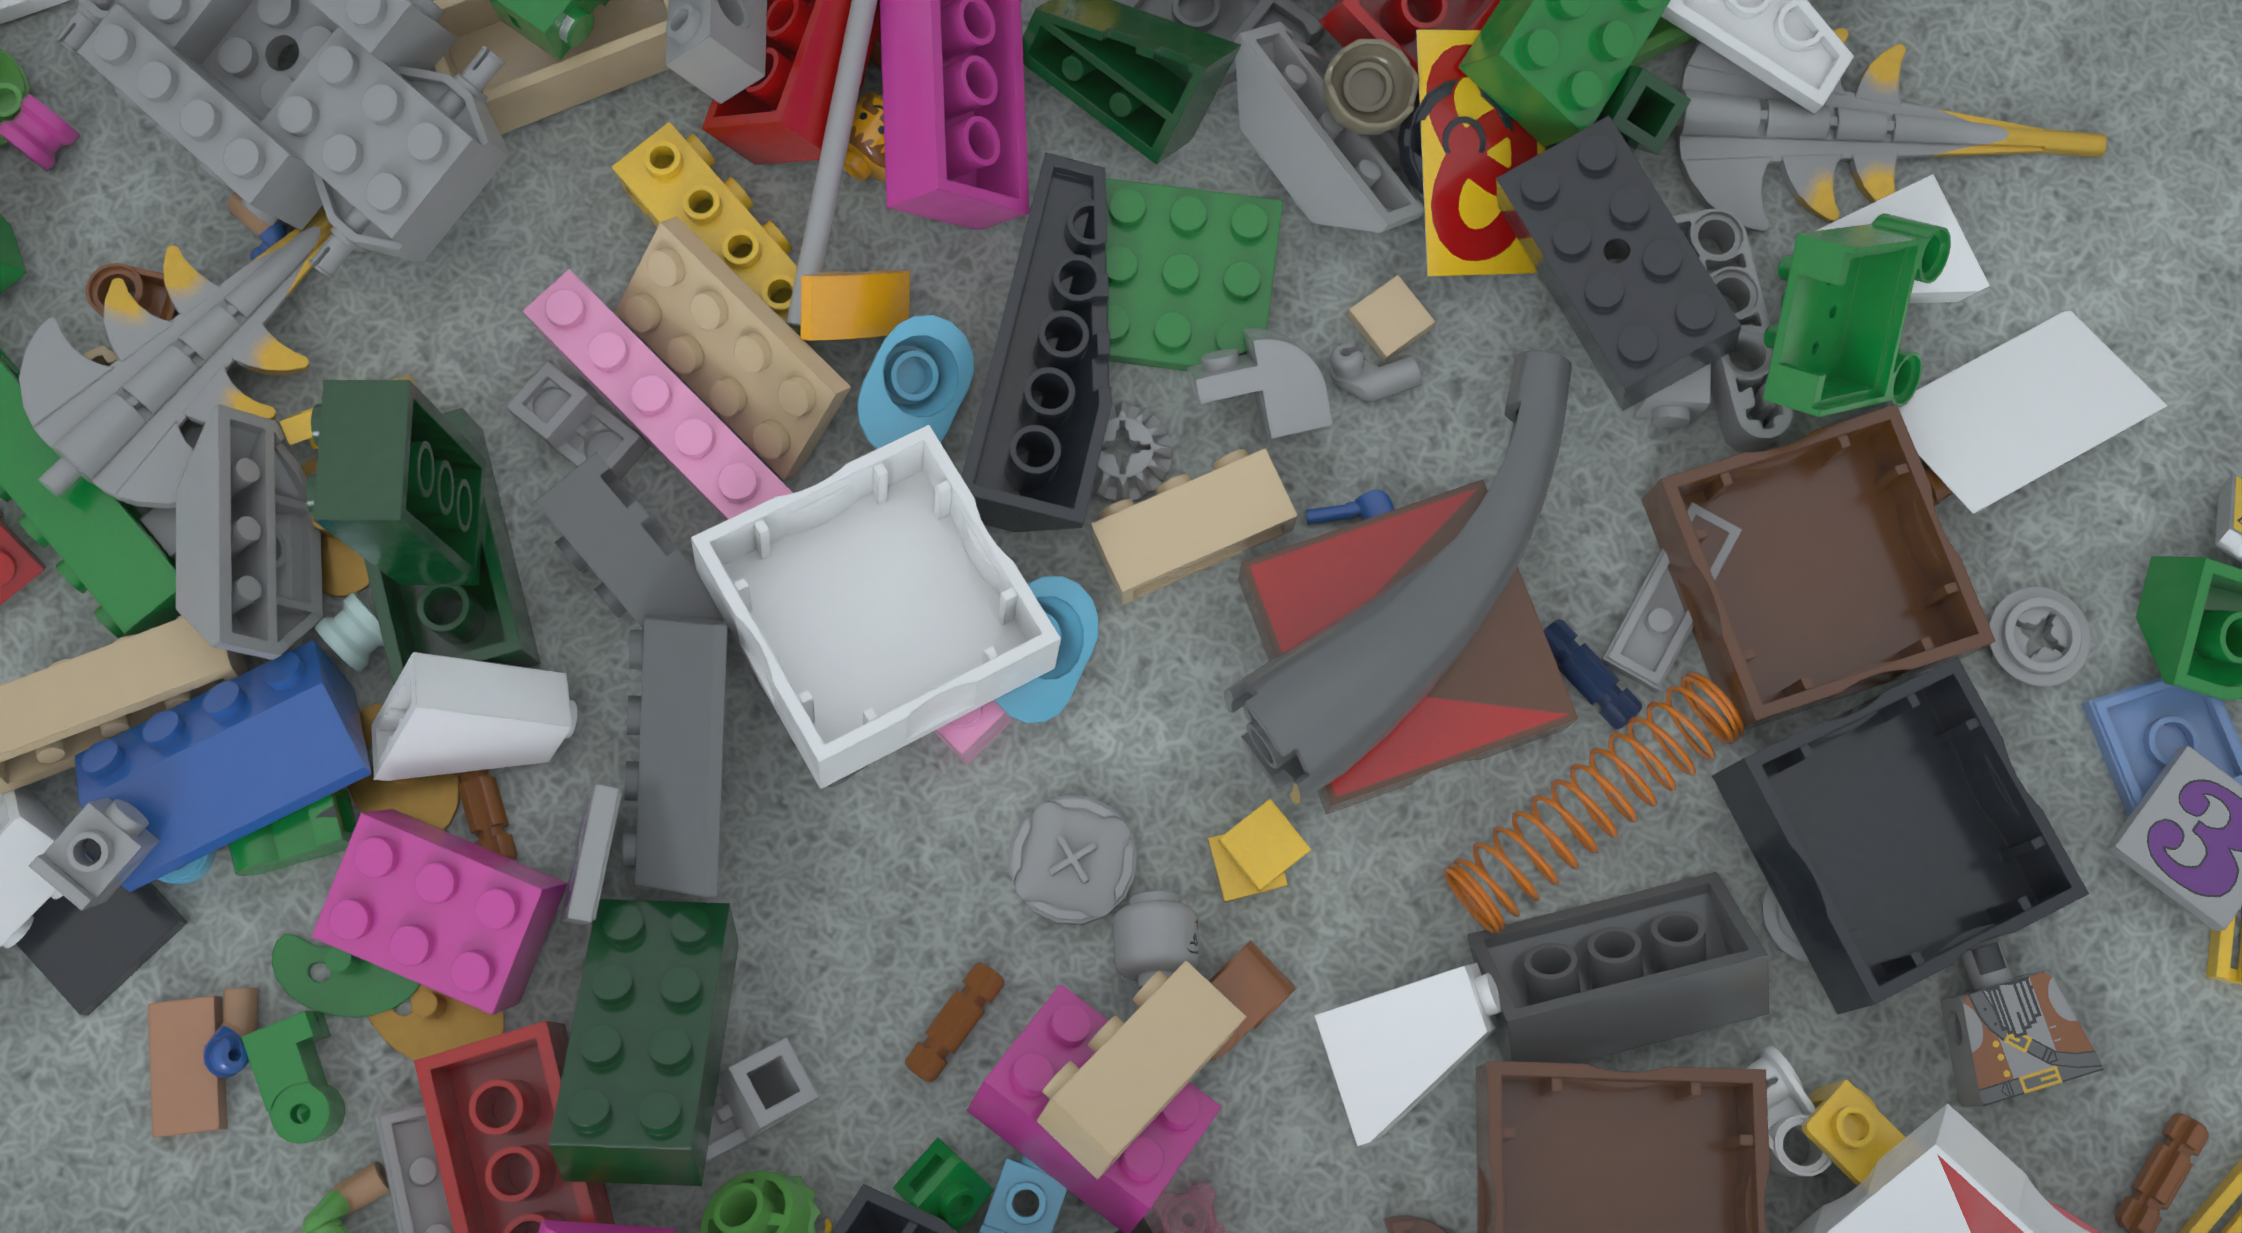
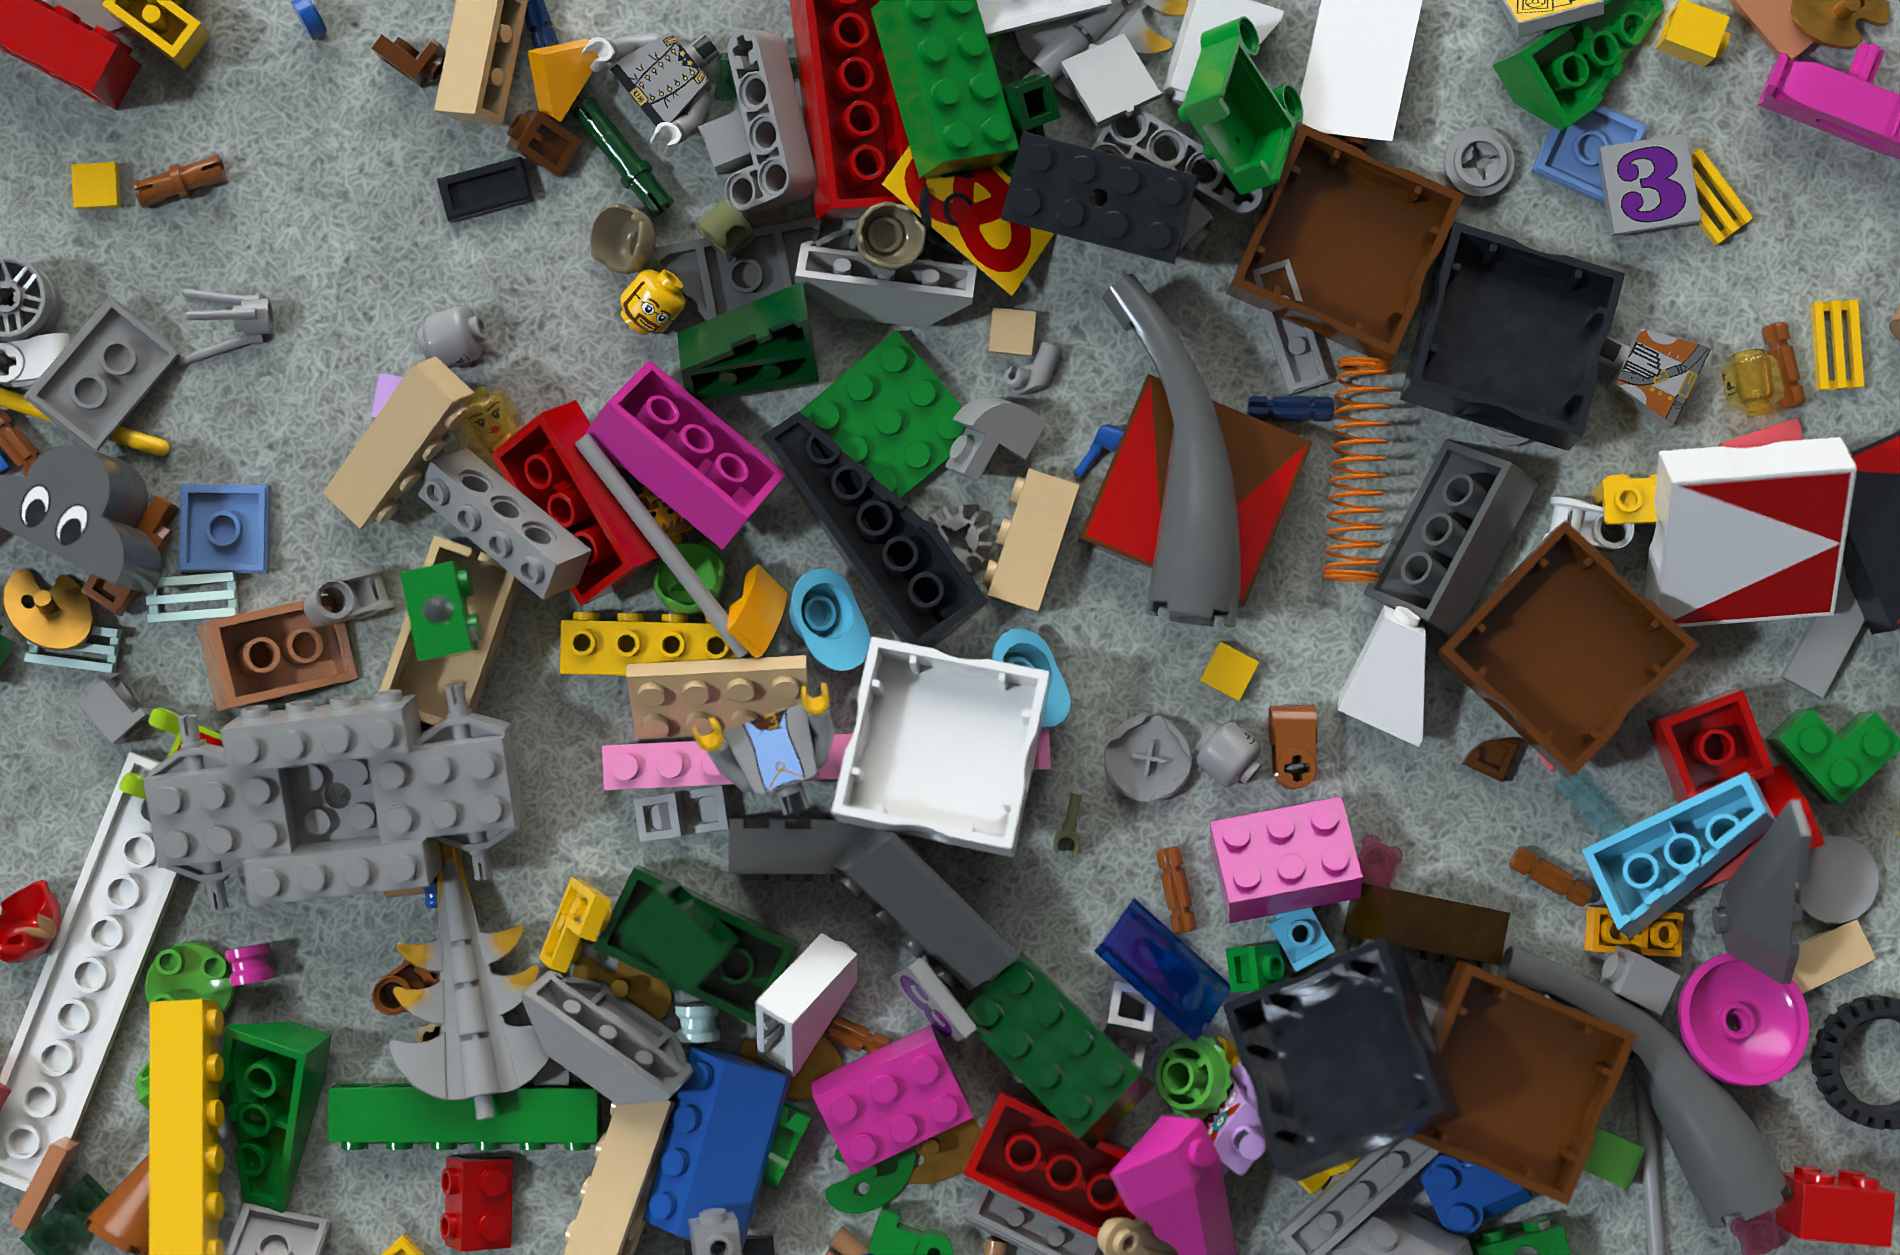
camera: 50 degrees left, 10 degrees up
(714, 433) = (775, 750): none -> torso
(848, 1083) = (1163, 969): none -> clear blue tile
(856, 216) = (705, 562): none -> bright green hair
(922, 842) = (1070, 824): none -> olive hand
(1137, 1067) = (1291, 821): tan brick -> none
(1264, 845) = (1230, 656): yellow tile -> none
(1744, 178) = (1110, 80): none -> piece
(2111, 1156) = (1752, 382): none -> clear yellow head

